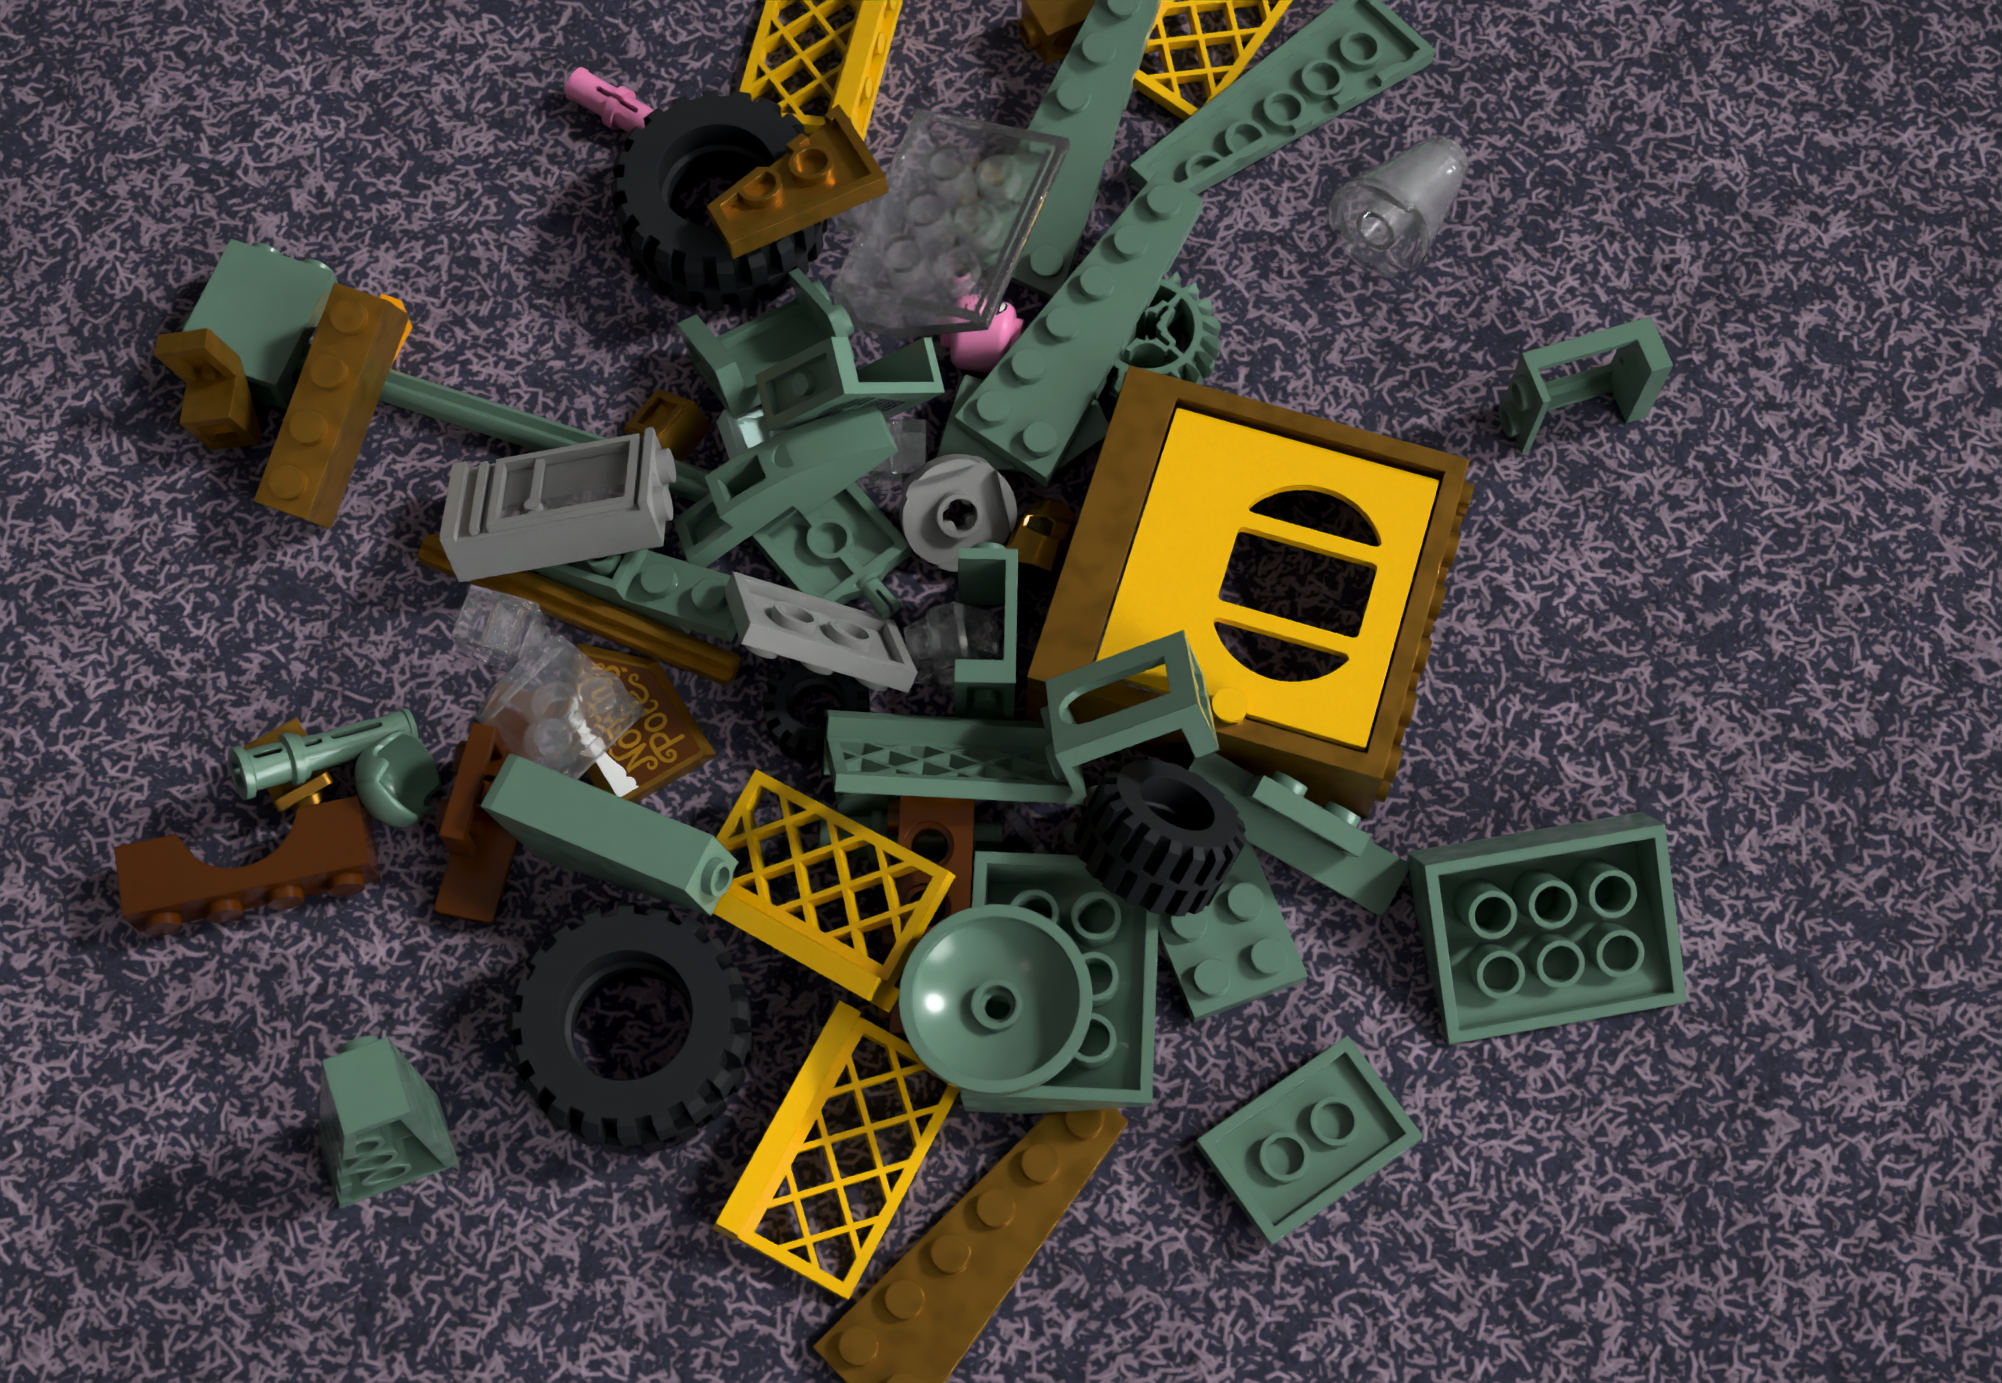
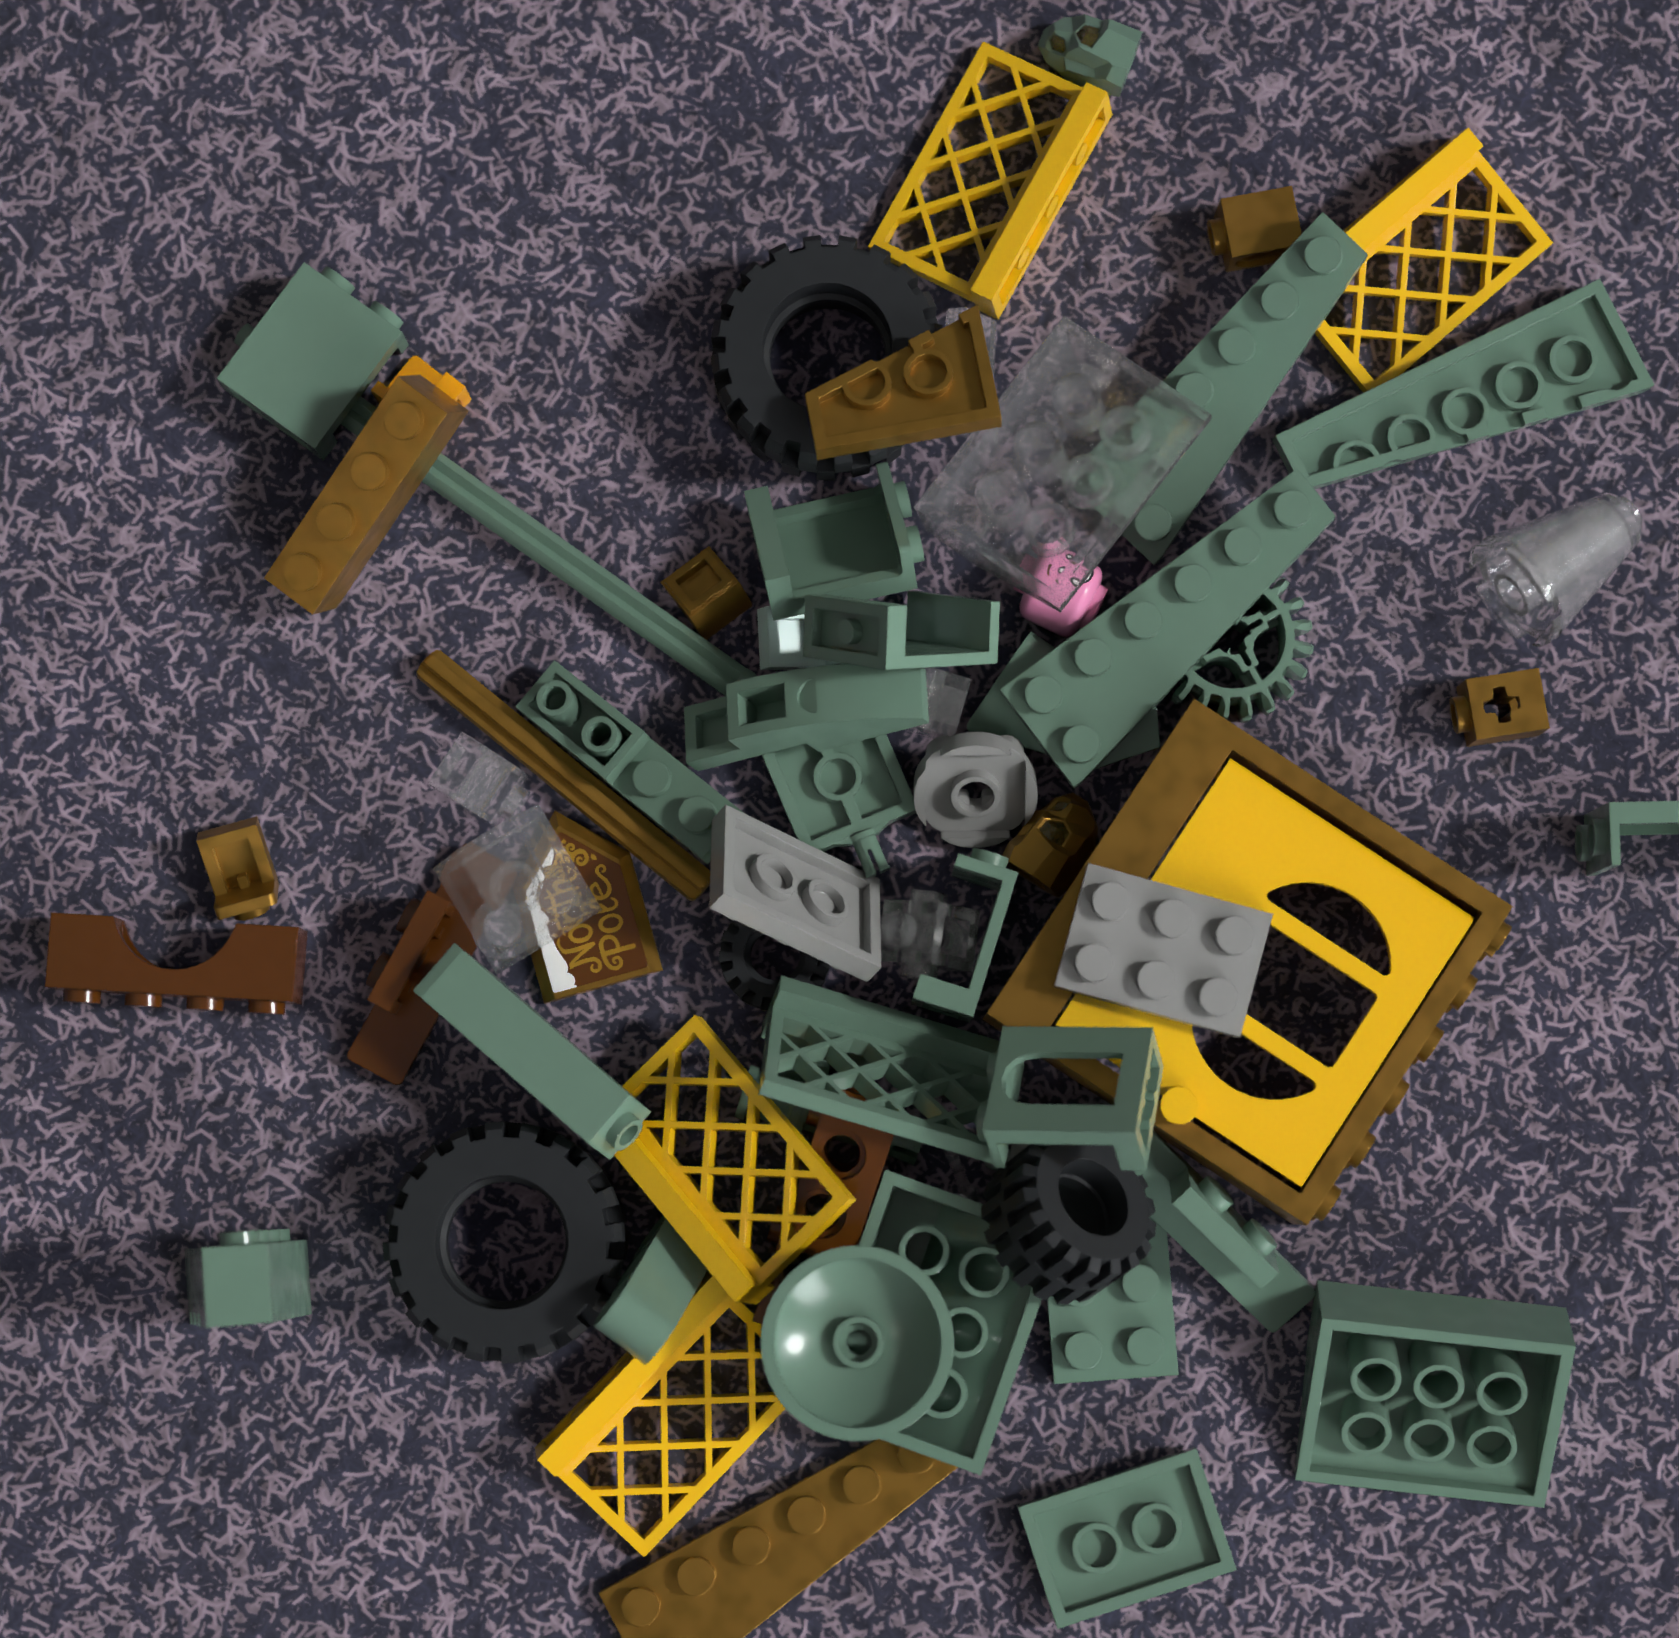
camera: 20 degrees right, 15 degrees up
(216, 394) = (251, 437): pearl gold slope -> none
(296, 757) = (246, 869): sand green pin -> none
(397, 779) = (339, 914): sand green hair -> none
(557, 506) = (569, 672): light grey door -> none
(615, 105) = (724, 177): bright pink pin -> none
(787, 1020) = (652, 1293): none -> sand green beam
(1171, 575) = (1163, 950): none -> light grey plate
(1398, 330) = (1518, 690): none -> pearl gold brick

